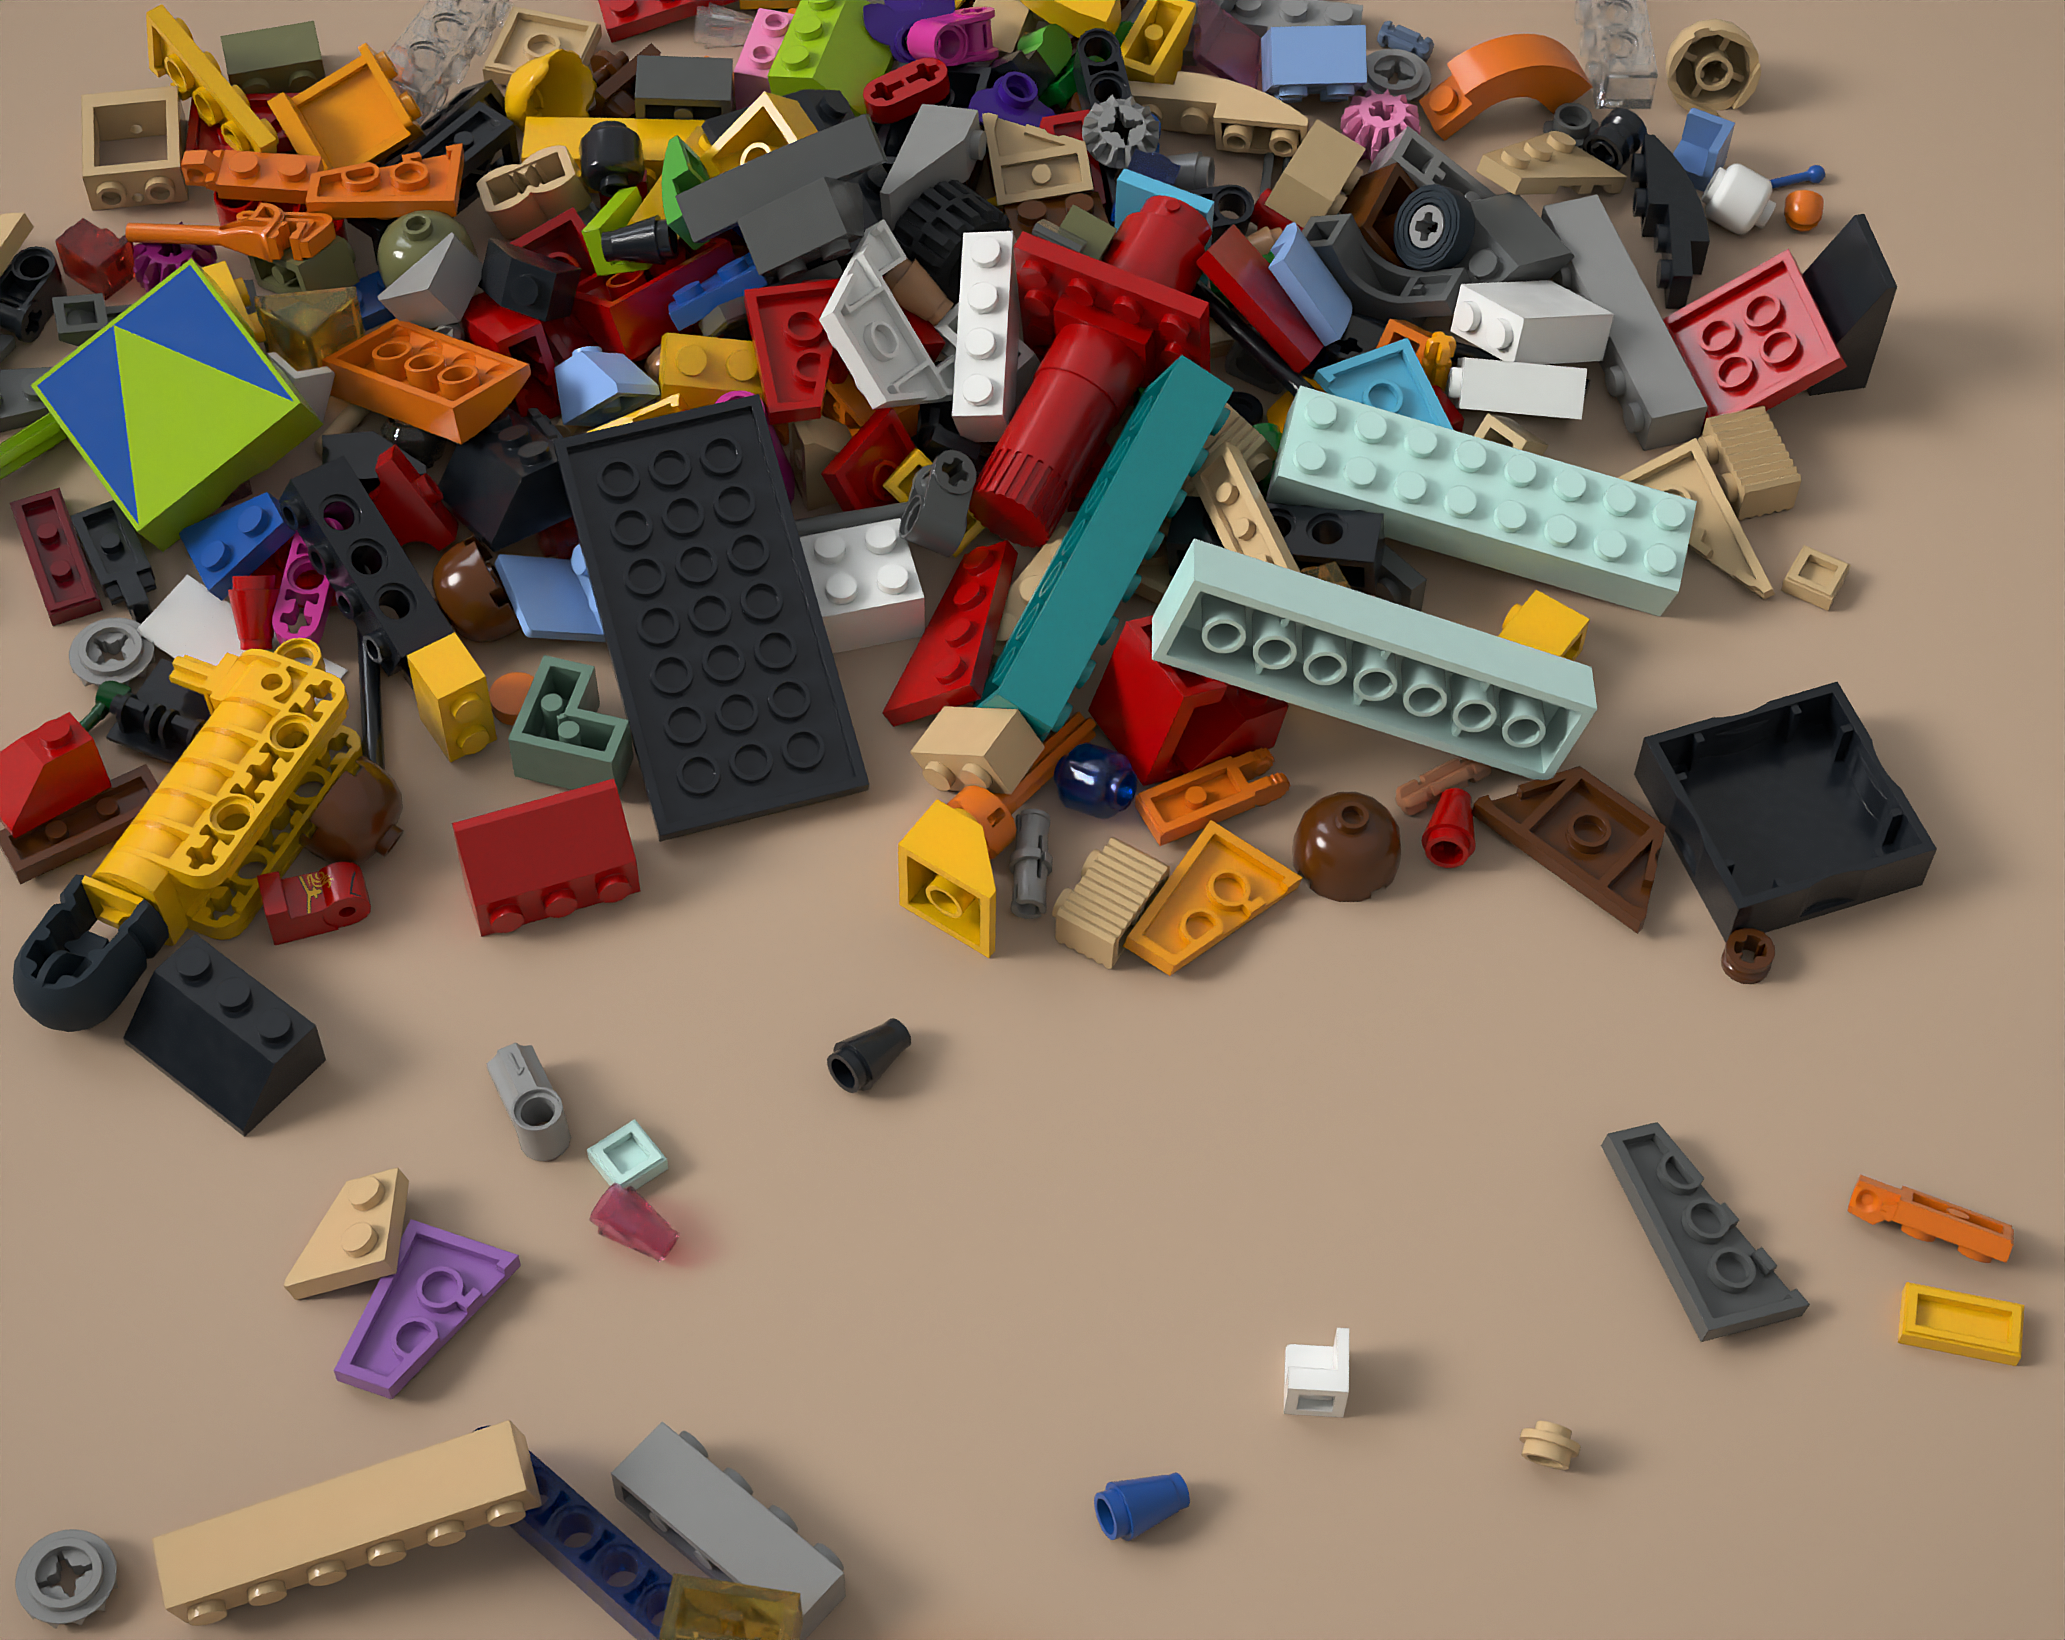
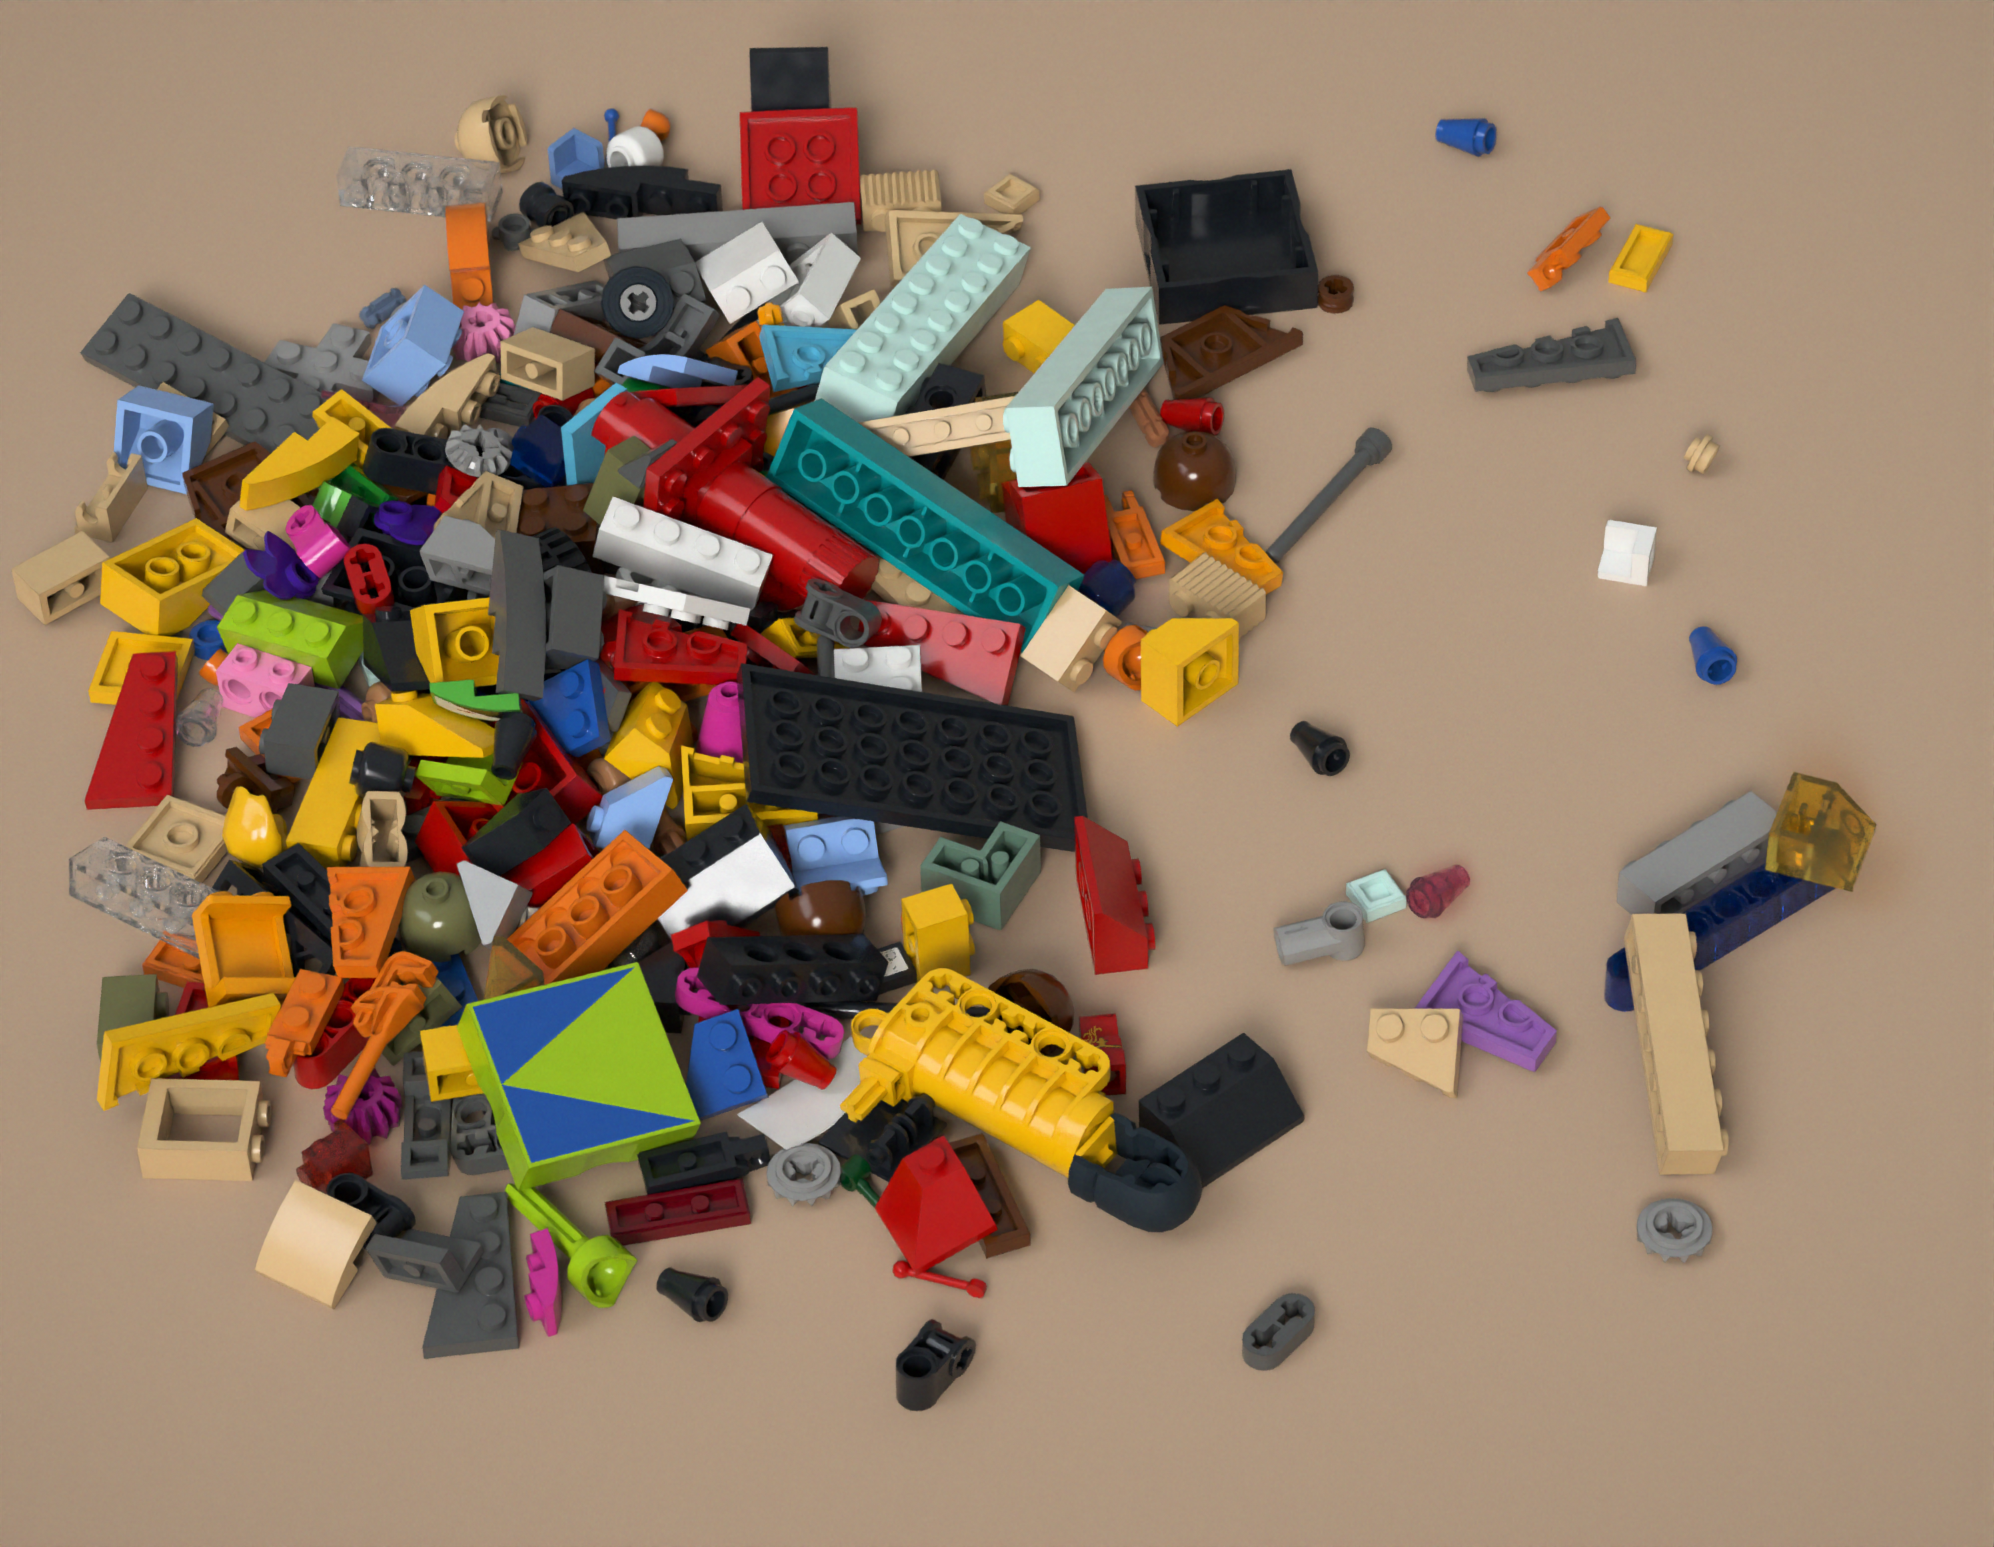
camera: 75 degrees left, 10 degrees down
(1444, 1035) = (1370, 449): none -> dark grey piece

